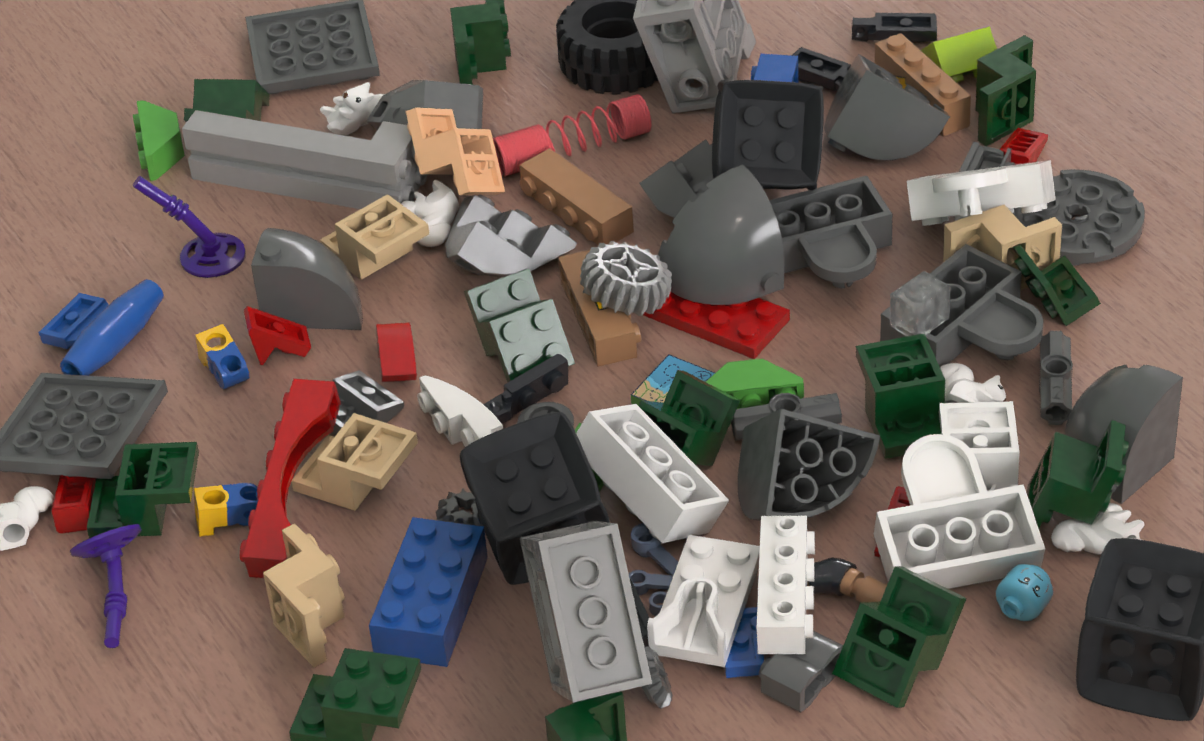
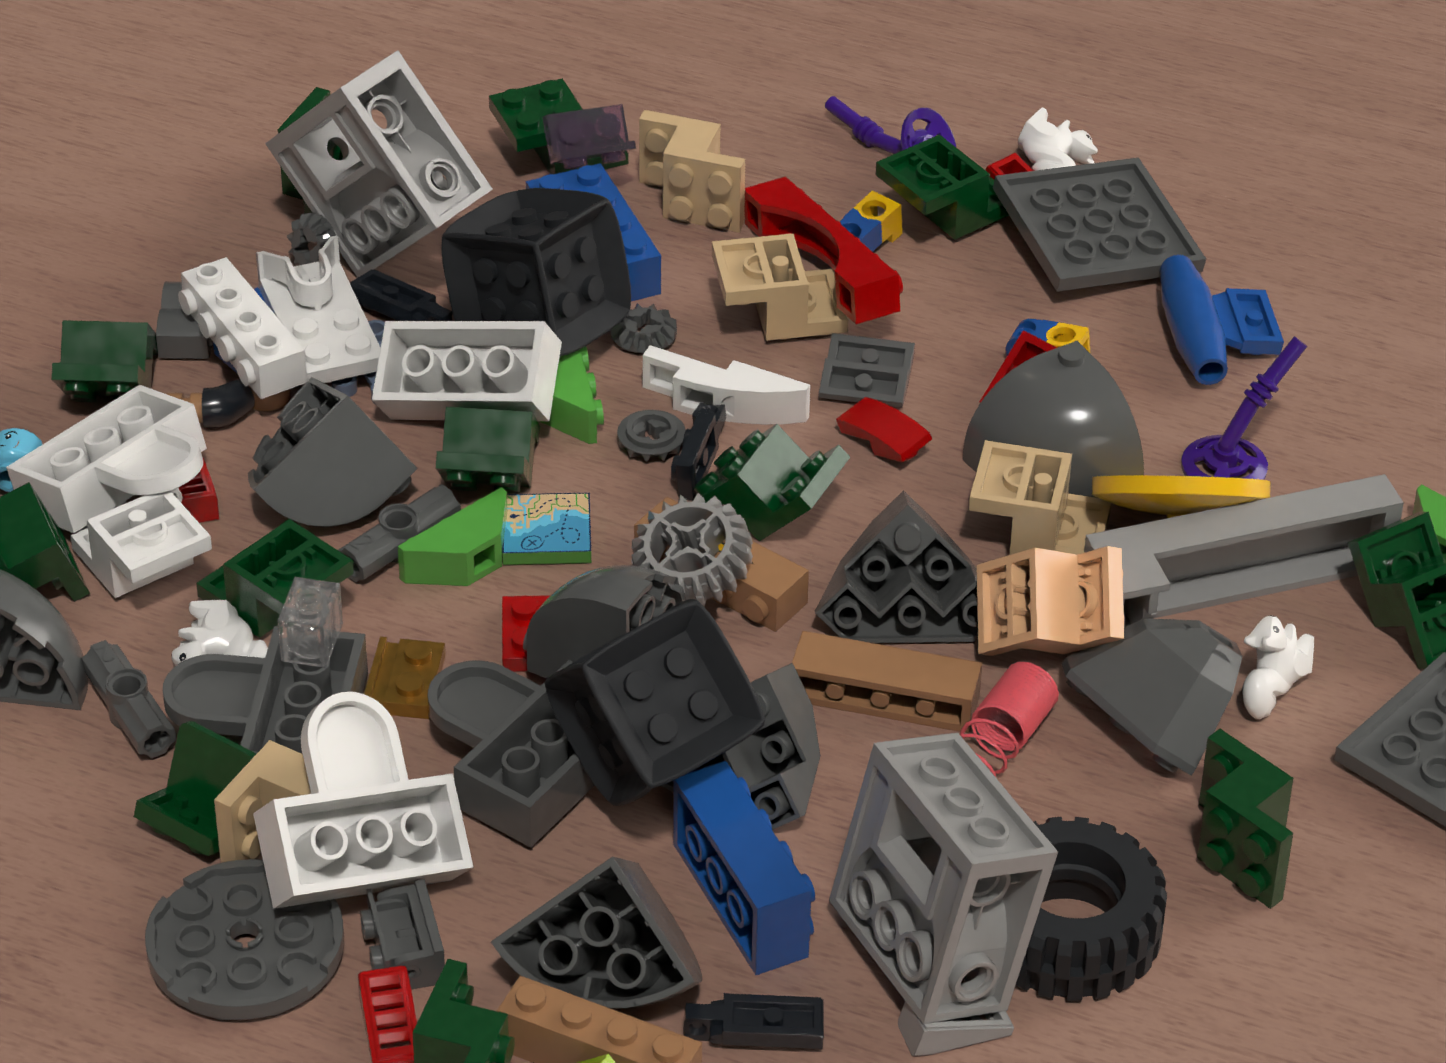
camera: 140 degrees right, 0 degrees up
(294, 183) = (1177, 494): none -> yellow dish
(364, 631) = (587, 134): none -> clear purple bracket
(854, 328) = (403, 675): none -> pearl gold plate

